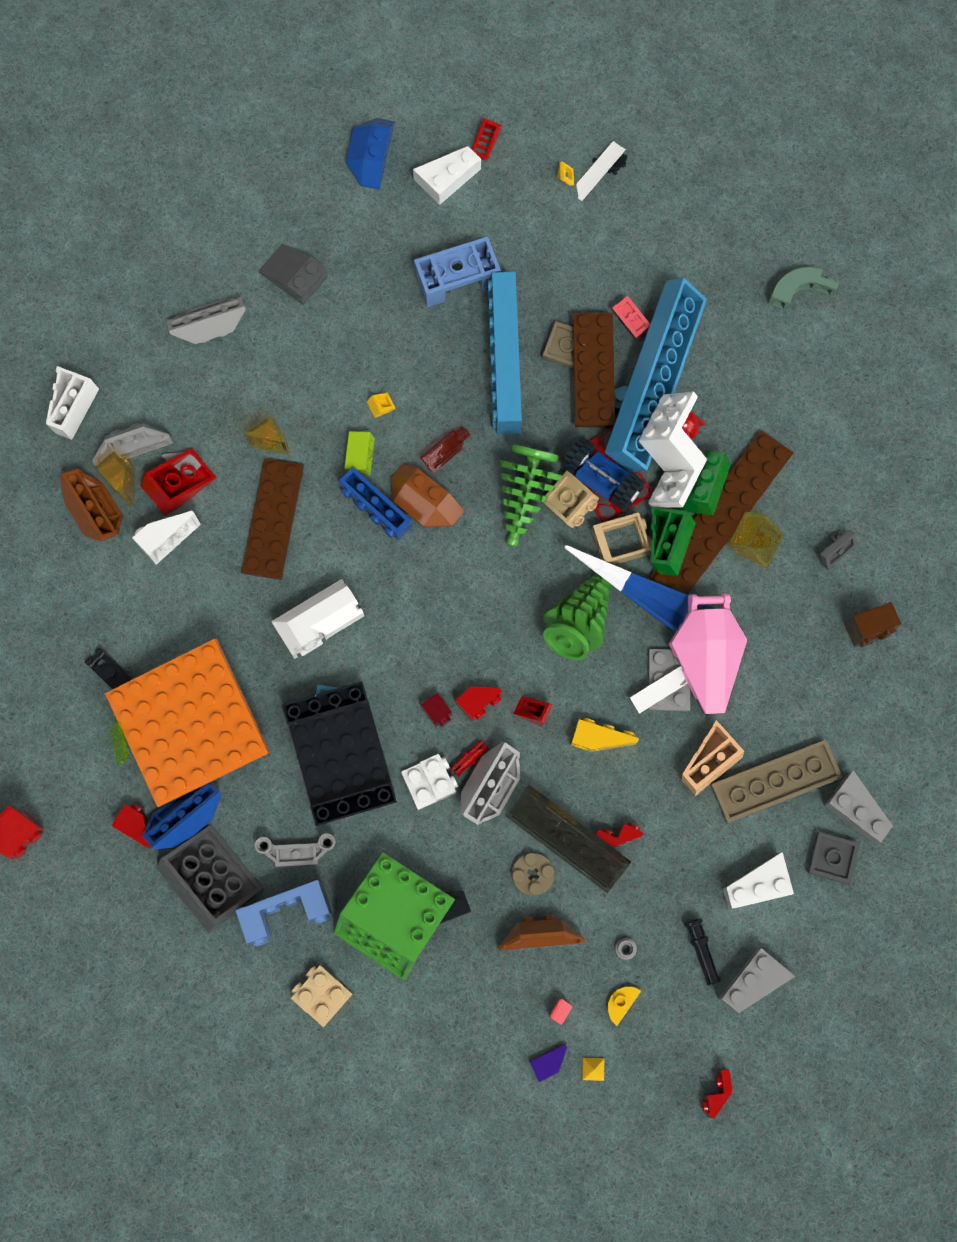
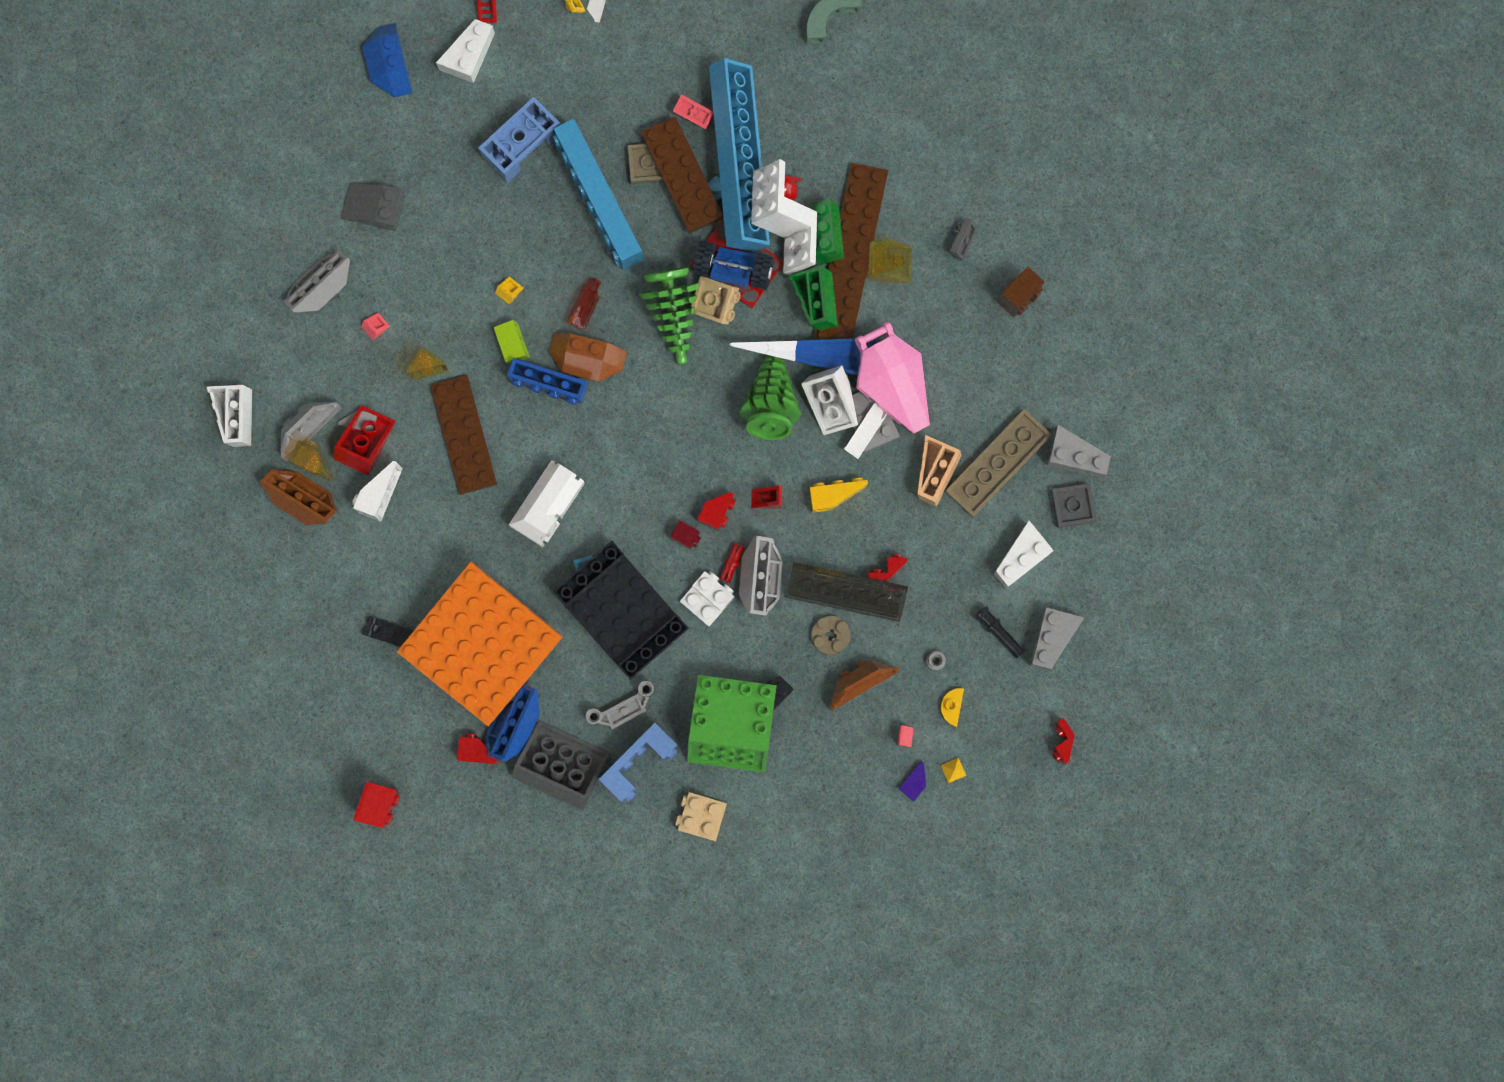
camera: 25 degrees left, 5 degrees up
(118, 743) = (428, 689): clear neon green piece -> none
(240, 381) = (374, 325): none -> coral slope
(602, 546) = (760, 328): tan window -> none
(639, 644) = (831, 400): none -> white slope

